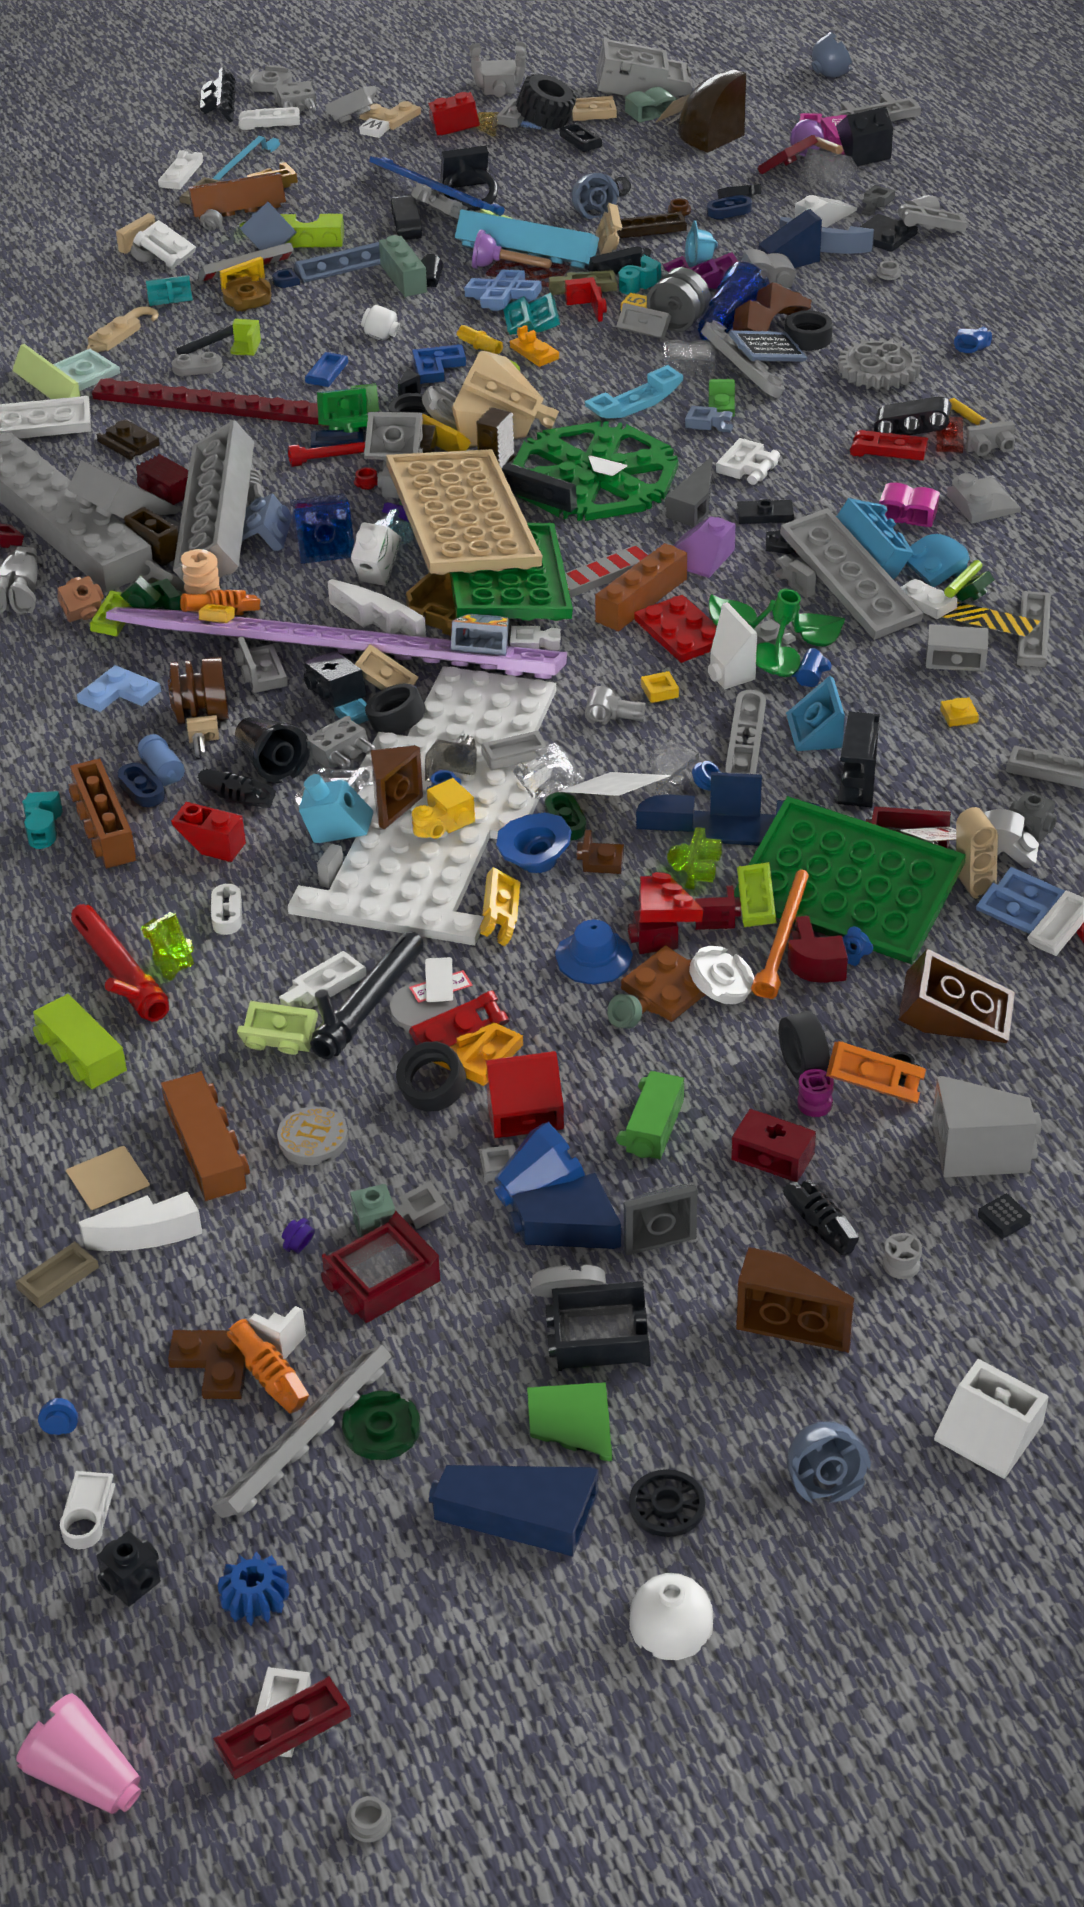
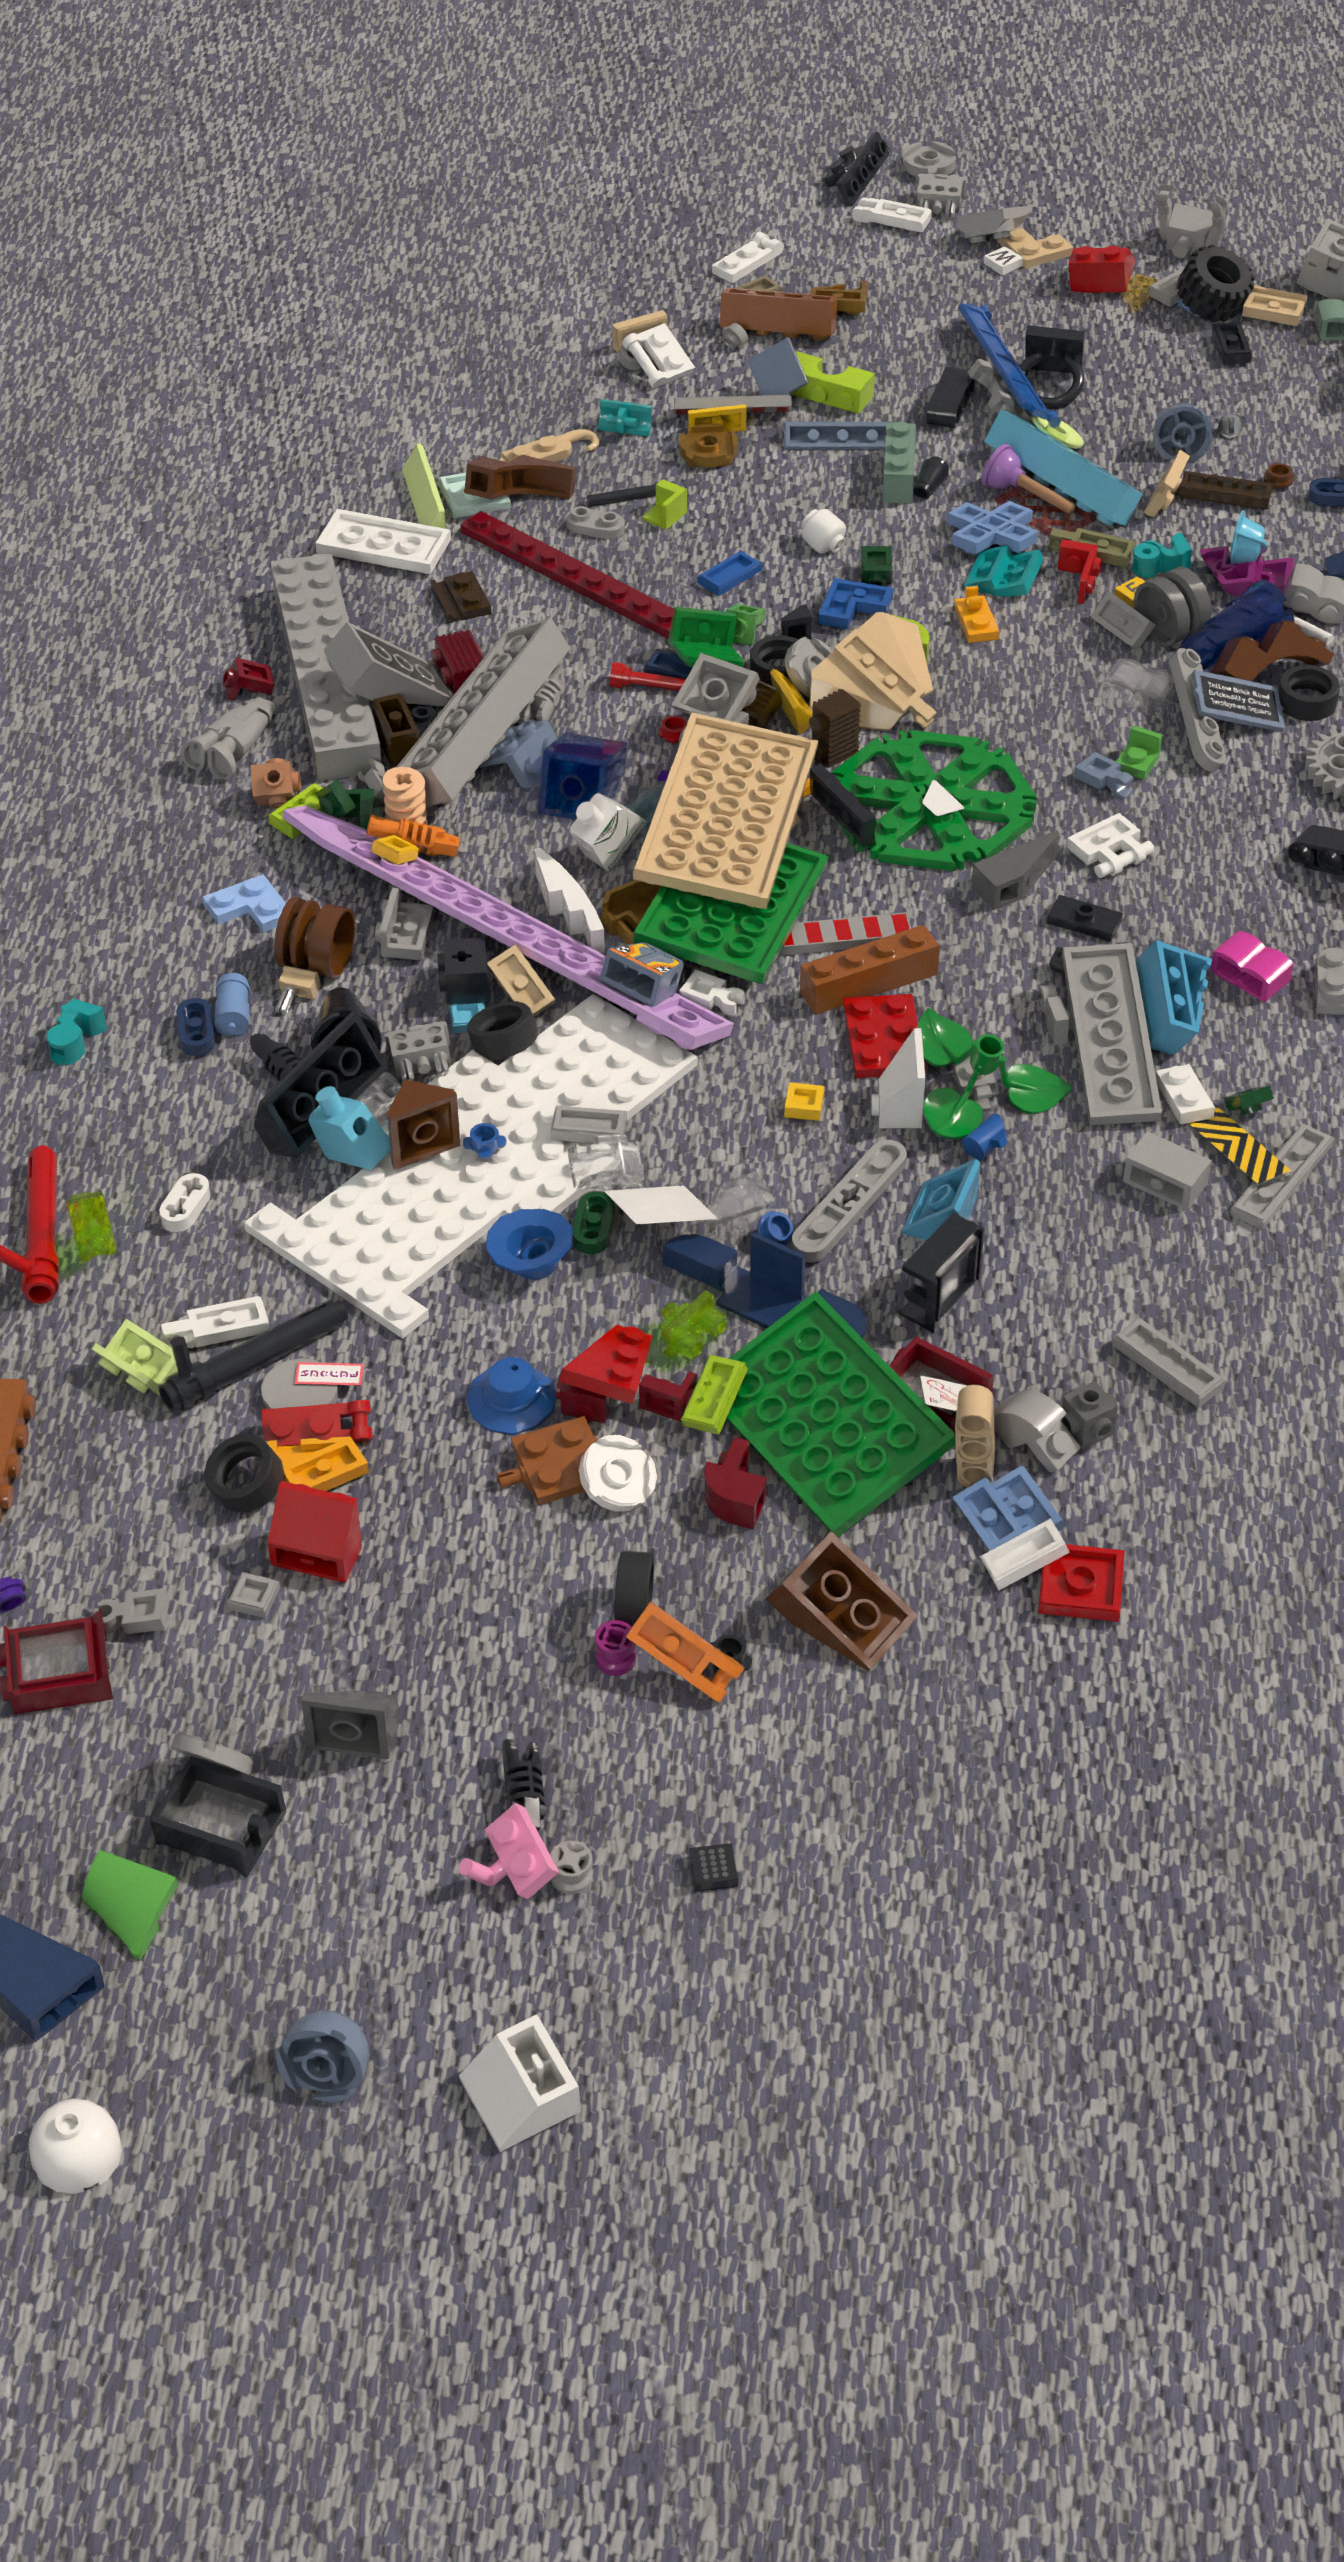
camera: 25 degrees right, 5 degrees up
(101, 814) = (129, 1048): dark orange brick -> none
(120, 346) = (522, 475): none -> reddish brown arch
(211, 830) = (221, 1107): red slope -> none
(271, 145) = (870, 253): medium azure piece -> none
(278, 819) = (341, 1060): none -> black slope
(285, 278) = (765, 438): dark blue tile -> none
(312, 1135) = (97, 1490): light grey tile -> none
(329, 865) = (313, 1190): light grey tile -> none
(370, 1206) = (84, 1594): sand green bracket -> none
(436, 333) = (876, 565): none -> dark green bracket
(439, 979) = (331, 1365): white sticker -> none
(447, 810) = (465, 1175): yellow brick -> none
(451, 756) = (512, 1110): clear smoke bracket -> none
(479, 339) = (921, 588): yellow axle -> none
(500, 905) = (452, 1301): yellow hinge -> none
(536, 1164) = (274, 1621): blue cone -> none
(567, 1215) = (269, 1678): dark blue slope -> none
(600, 856) = (596, 1283): reddish brown bracket -> none
(604, 705) = (730, 1104): light grey pin -> none
(618, 259) = (1146, 529): black hinge -> none
(624, 1011) = (490, 1475): sand green tile -> none
(653, 1115) = (434, 1606): bright green brick -> none
(659, 386) = (1081, 712): medium azure slope -> none
(667, 1503) = (157, 2028): black wheel -> none
(708, 545) = (979, 943): medium lavender slope -> none
(767, 981) = (661, 1499): orange piece -> none
(773, 1145) = (530, 1688): dark red brick -> none
(792, 1302) = (400, 1865): reddish brown slope -> none
(859, 1259) = (519, 1852): none -> bright pink plate
(862, 943) = (782, 1493): blue plate -> none
(889, 445) = (1291, 879): red plate -> none
(938, 558) = (1234, 1047): dark azure slope -> none
(952, 589) = (1242, 1084): lime bar -> none
(959, 712) = (1115, 1251): yellow plate -> none
(983, 1129) = (743, 1763): light grey slope -> none

